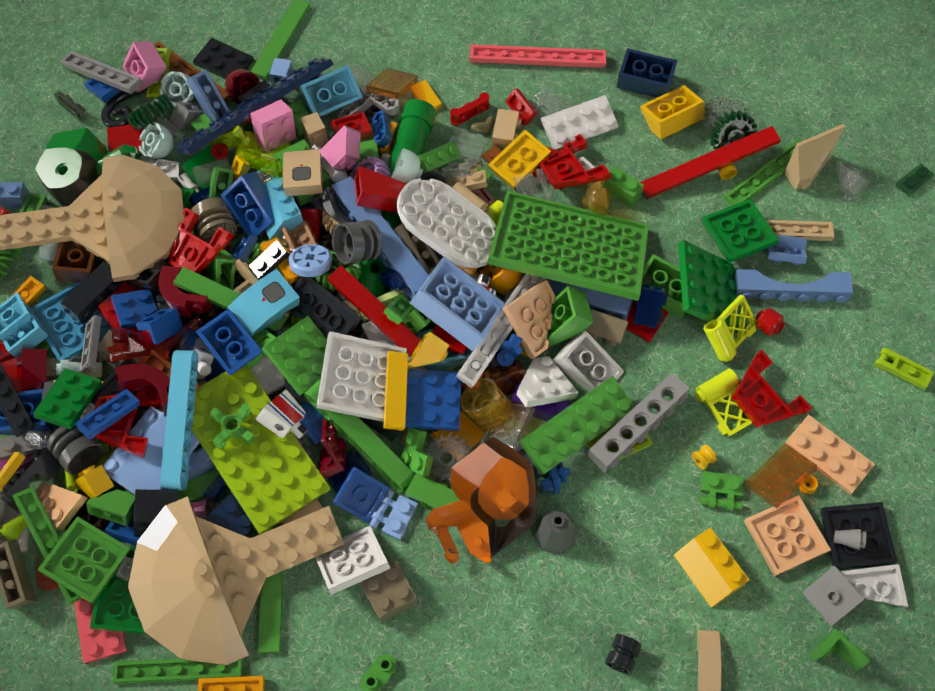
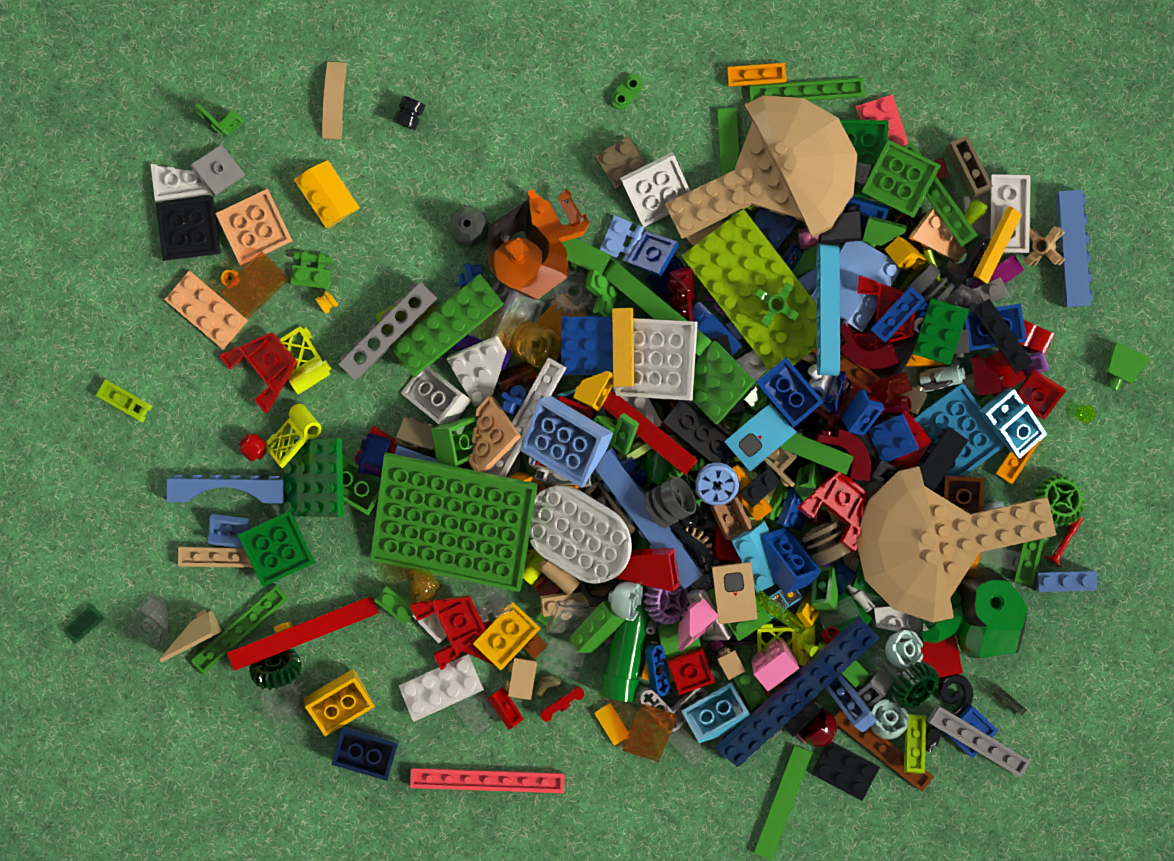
camera: 175 degrees right, 25 degrees up
(90, 344) = (931, 397): light grey tile -> none
(145, 63) = (929, 747): bright pink slope -> none
(279, 69) = (776, 752): light blue brick -> none
(283, 416) = (729, 318): white torso -> none
(851, 538) = (195, 221): light grey cone -> none

